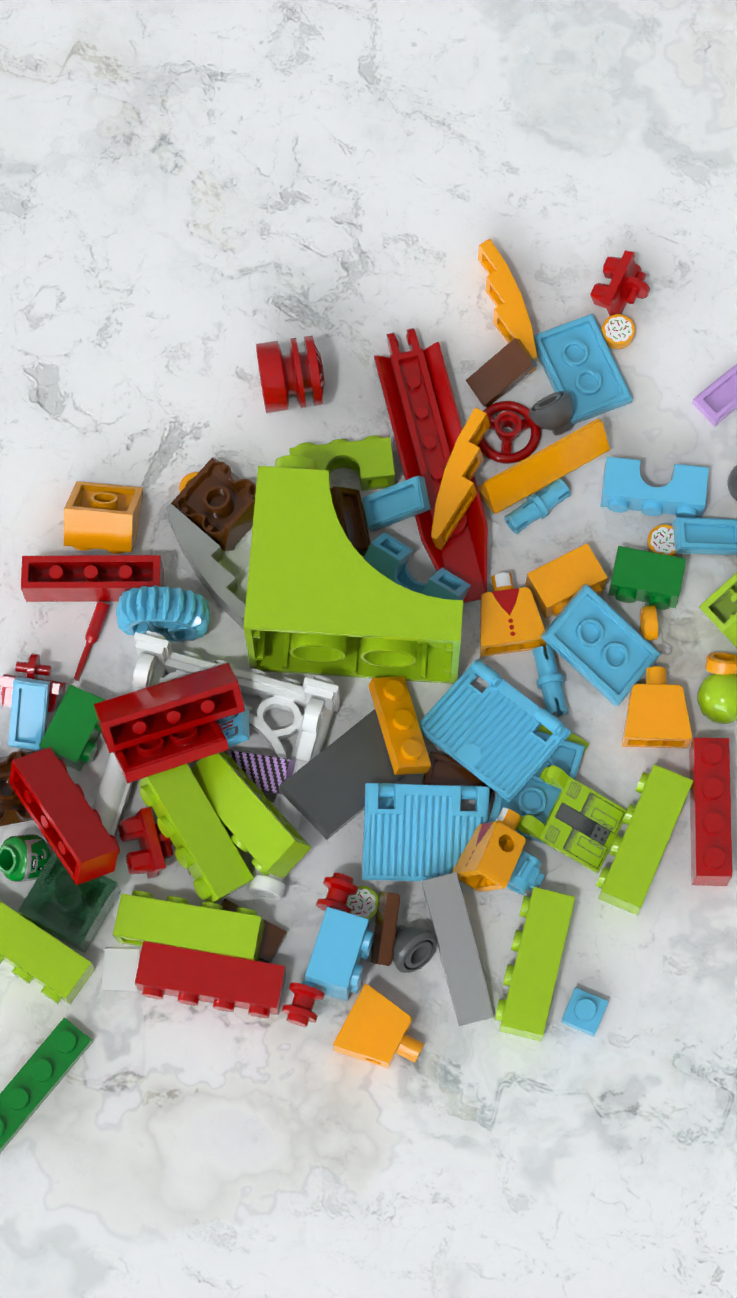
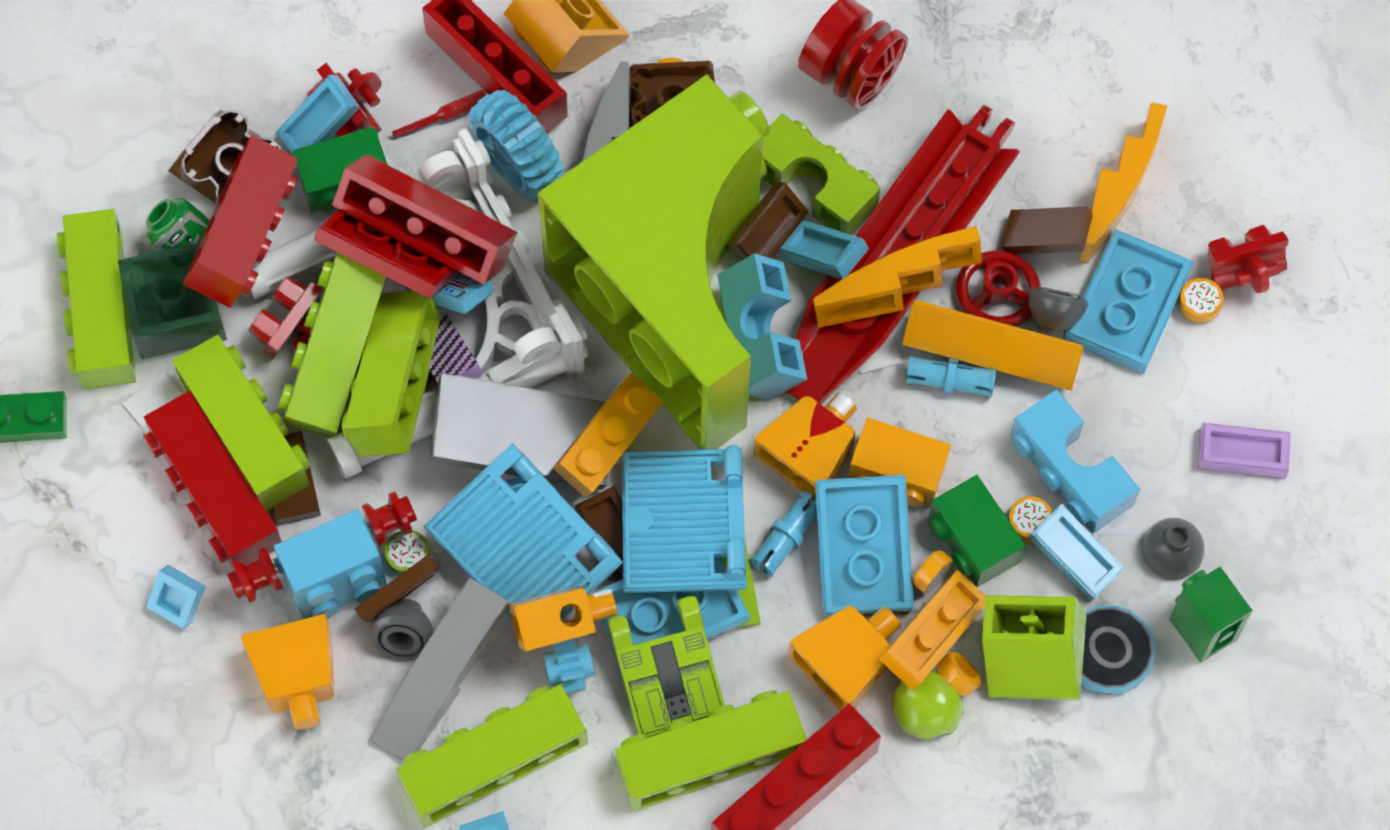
camera: 45 degrees right, 5 degrees down
(266, 1062) = (175, 596): none -> medium azure plate
(688, 653) = (934, 630): none -> light orange plate

